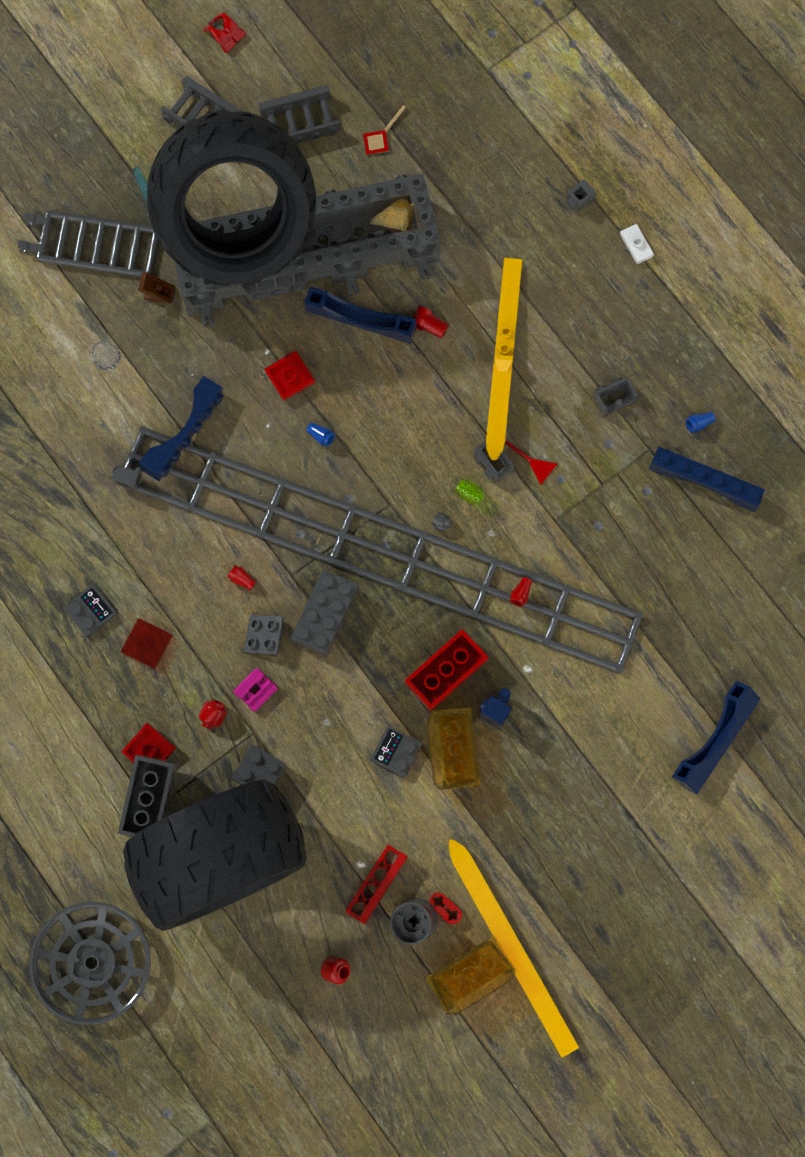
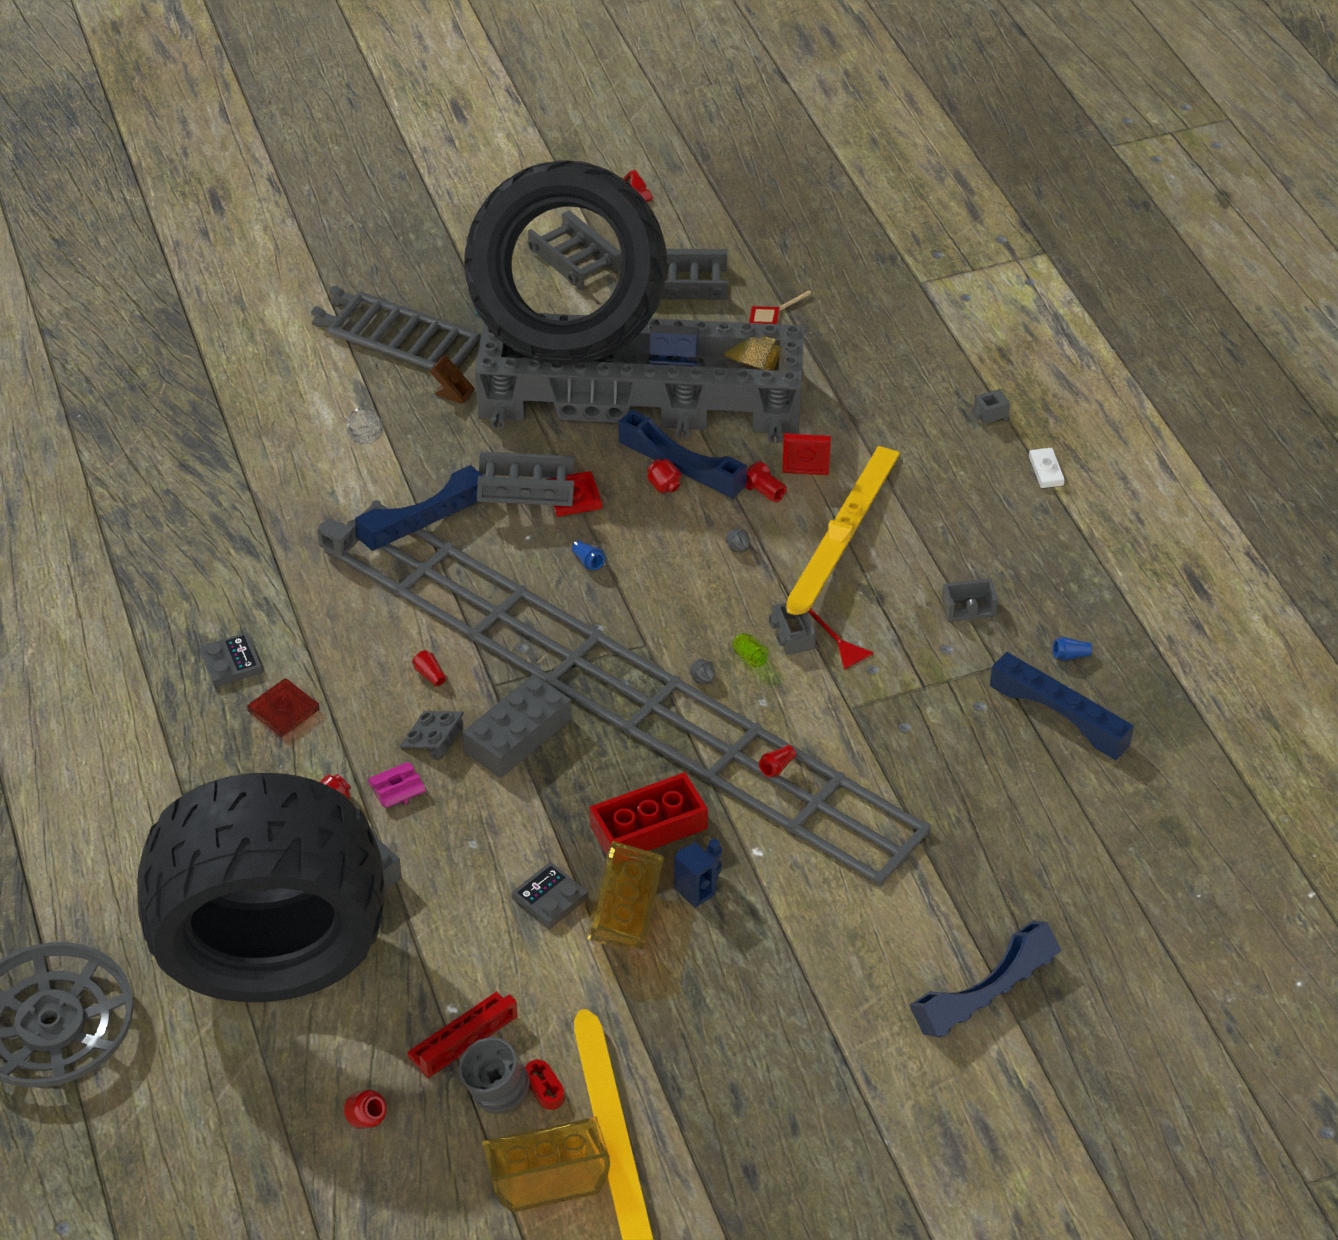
camera: 15 degrees right, 30 degrees down
(253, 394) = (522, 490): none -> dark grey fence
(330, 224) = (674, 341): none -> dark blue brick
(353, 339) = (664, 476): none -> red head
(428, 387) = (738, 540): none -> dark grey plate
(456, 291) = (806, 454): none -> red plate

